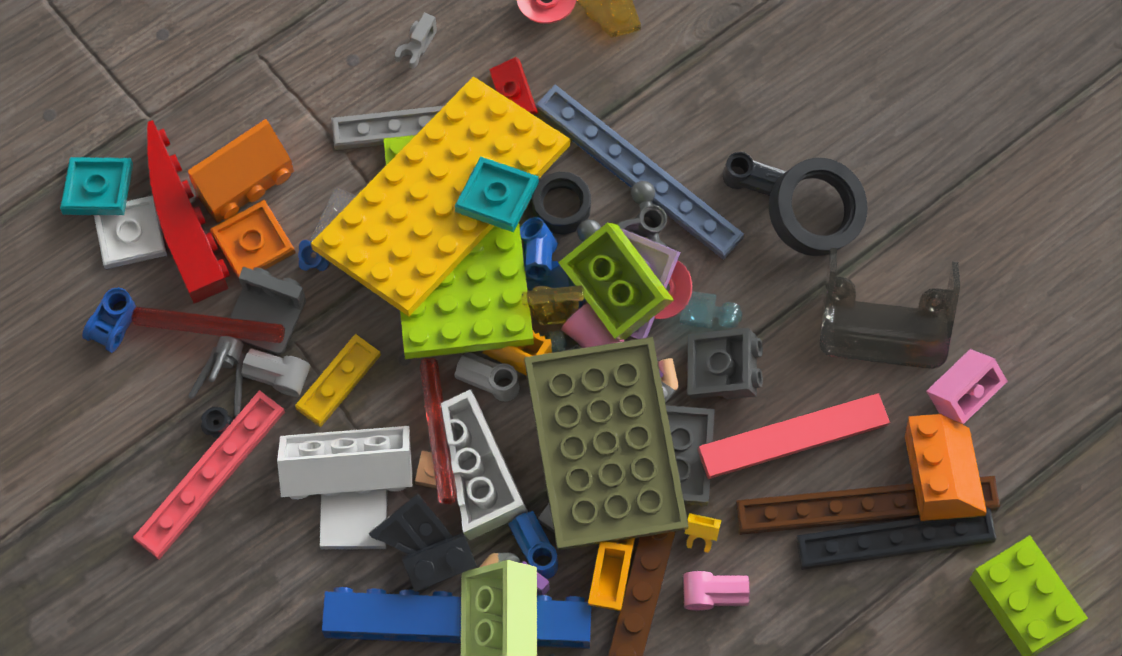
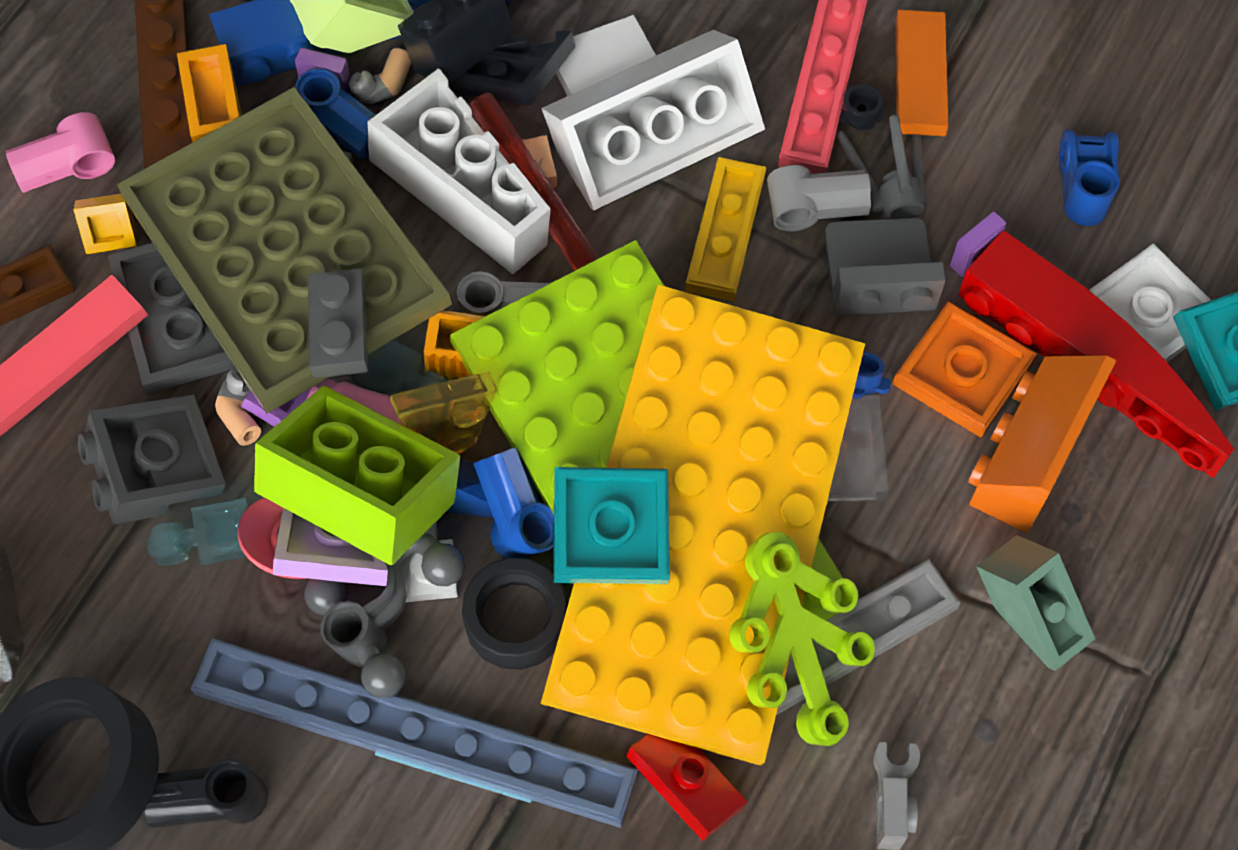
camera: 155 degrees right, 5 degrees down
(166, 431) = (921, 72): none -> orange tile
(203, 301) = (975, 242): none -> medium lavender tile
(208, 324) = (947, 213): clear red axle -> none
(294, 102) = (1037, 600): none -> sand green slope
(425, 143) = (794, 634): none -> lime plant
(593, 361) = (337, 323): none -> dark grey plate

